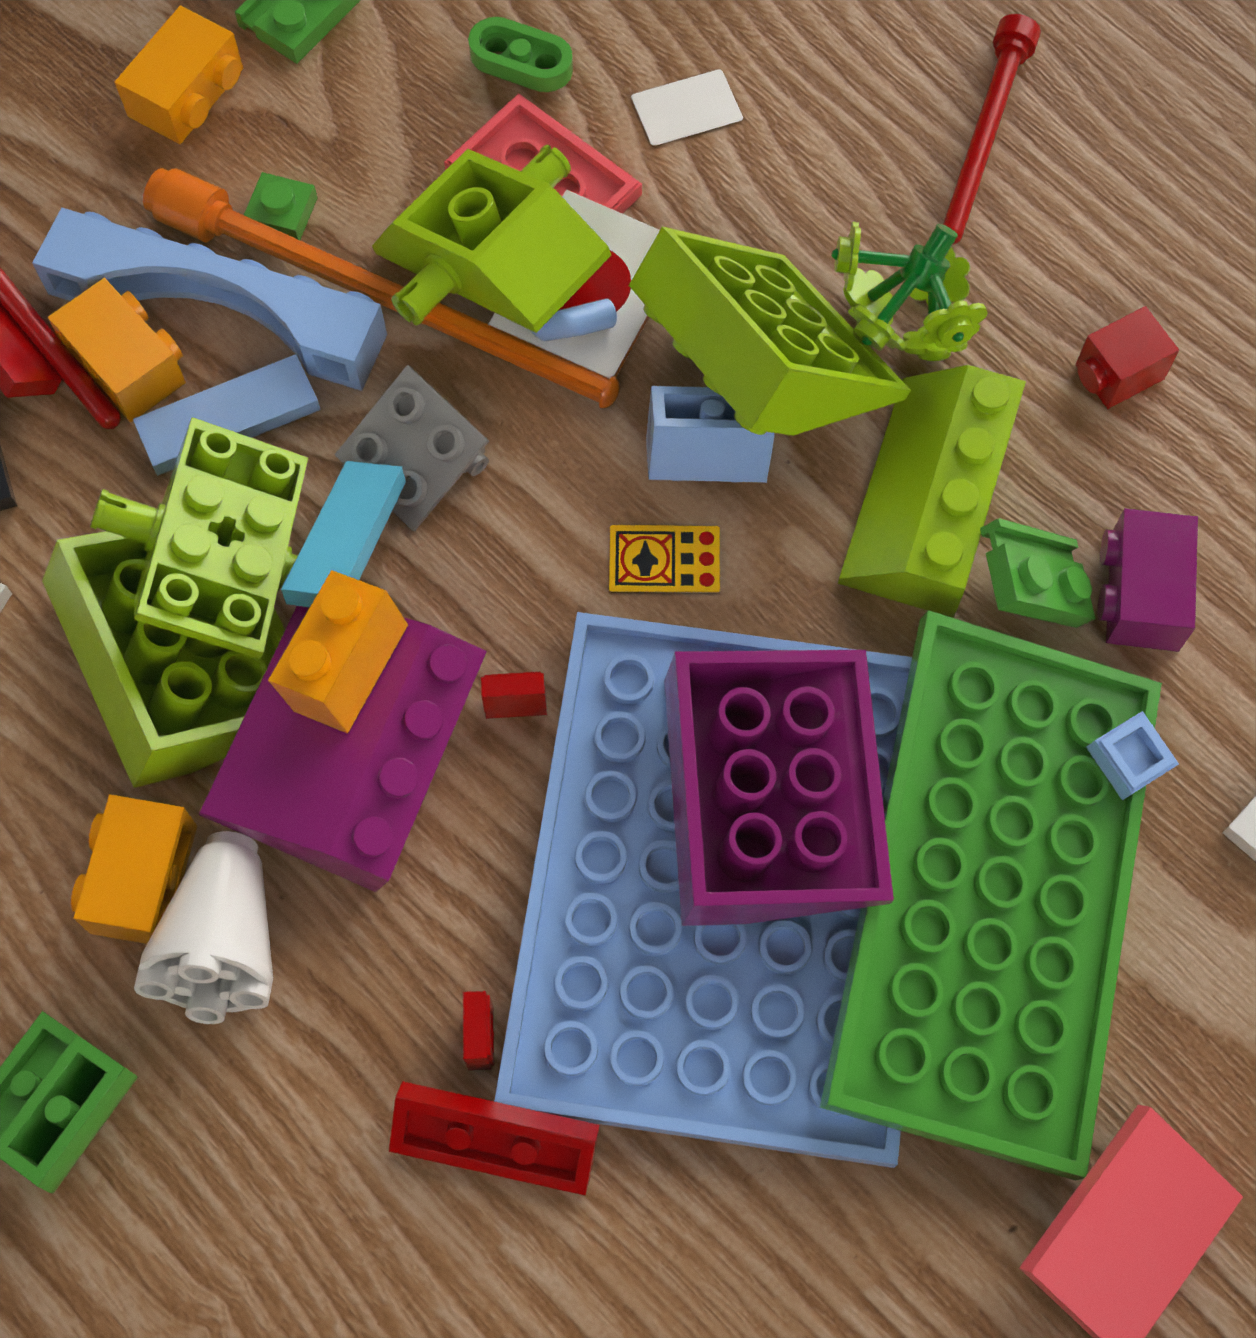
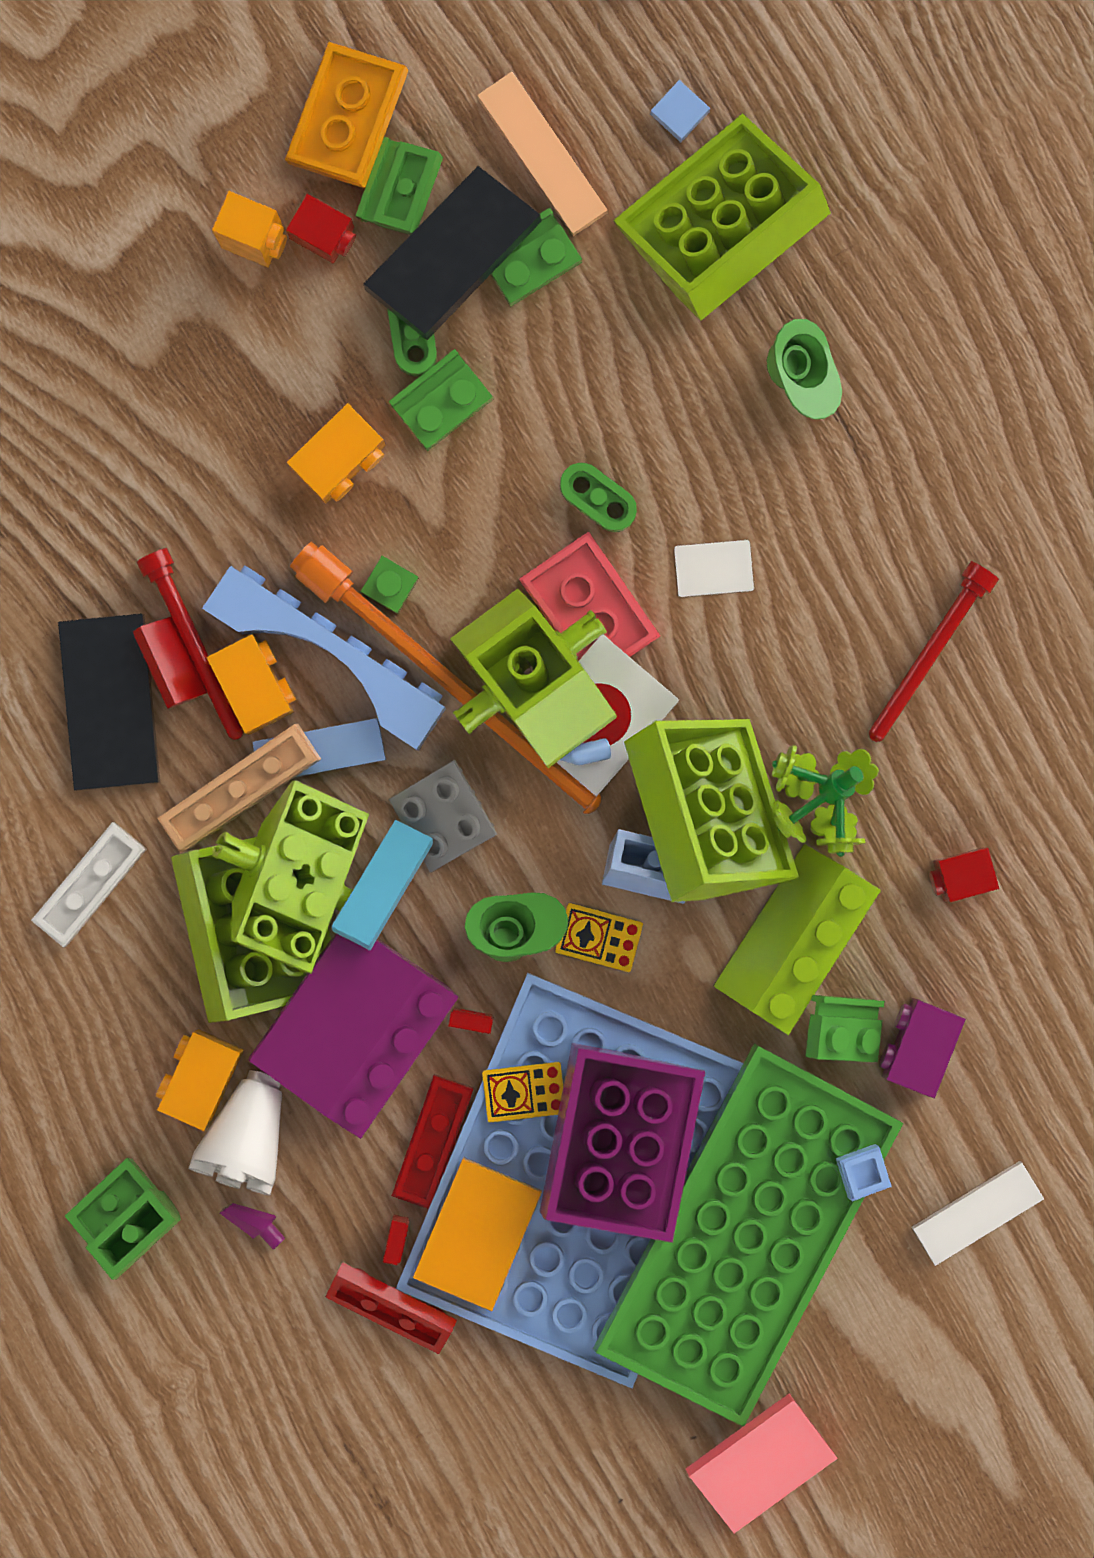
camera: 15 degrees right, 20 degrees up
(129, 466) = (239, 788): none -> light nougat tile
(258, 1067) = (254, 1223): none -> magenta bar
(339, 651) = (360, 989): light orange brick -> none
(498, 881) = (432, 1141): none -> red tile
(543, 556) = (516, 925): none -> bright green piece
(597, 985) = (477, 1234): none -> light orange tile
(612, 769) = (523, 1091): none -> yellow sticker

